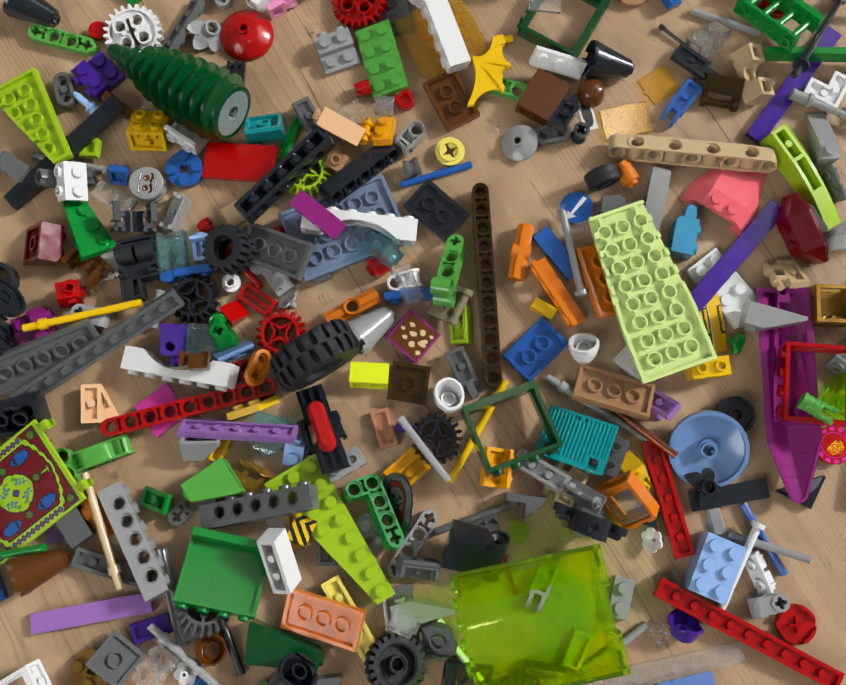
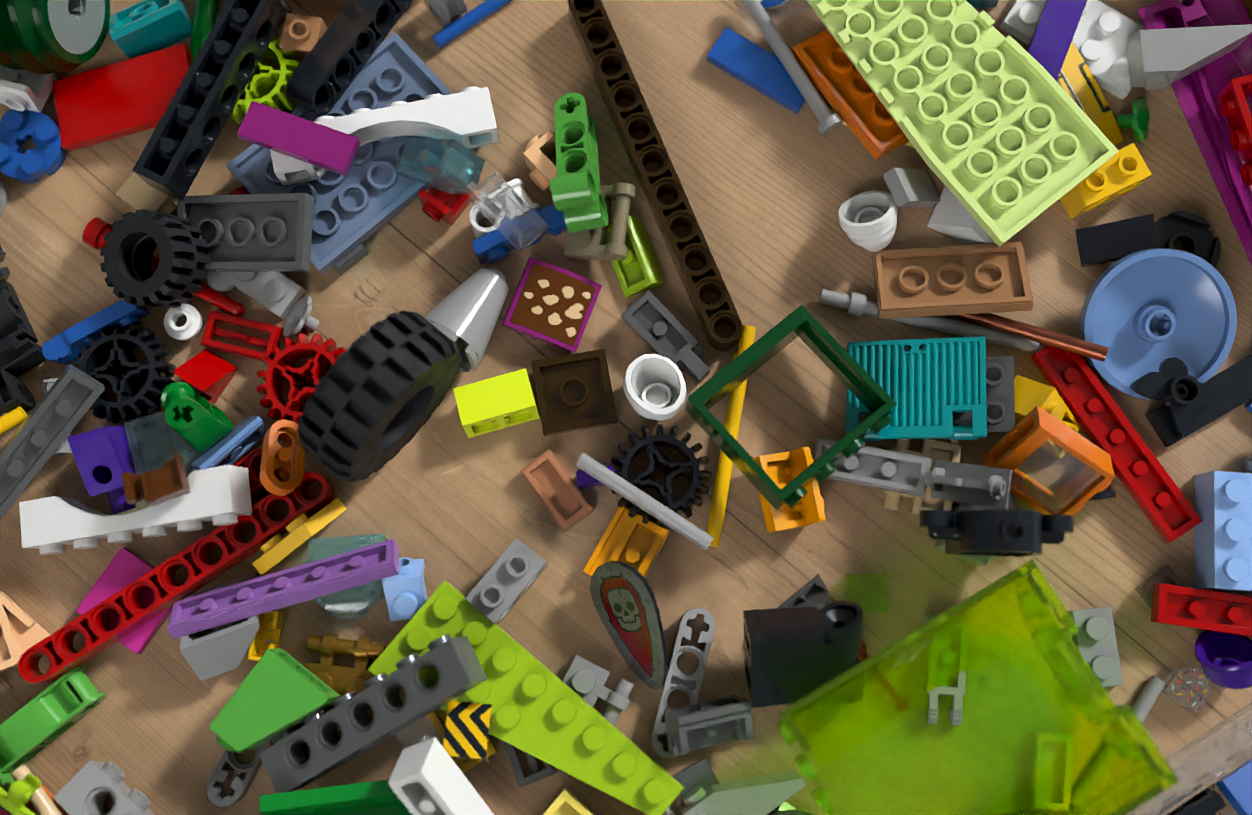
camera: 15 degrees left, 0 degrees up
(157, 500) = (178, 770): green slope -> none
(172, 250) = (50, 298): clear light blue bracket -> none
(176, 213) = (37, 230): light grey hinge -> none
(197, 241) = (90, 264): light blue bracket -> none
(326, 428) = (451, 528): black piece -> none
(363, 301) = (439, 272): orange piece -> none
(377, 513) = (595, 649): green beam -> none
(431, 268) = (536, 159): none -> light nougat bracket
(436, 210) = (516, 65): black plate -> none
(474, 517) = (779, 595): dark grey bar -> none
(520, 252) = (695, 89): orange piece -> none
(530, 503) = (872, 535): dark grey slope -> none
(535, 349) = (782, 254): blue tile -> none
(543, 308) = (771, 176): yellow piece -> none
(556, 293) = (785, 140): orange fence -> none
(610, 339) = (911, 188): none -> light grey tile
(651, 540) = (1115, 523): white plant -> none
(664, 406) = (1052, 274): medium lavender slope -> none
(703, 400) = (1116, 240): none -> black tile
(715, 521) = (1213, 449): light grey piece -> none

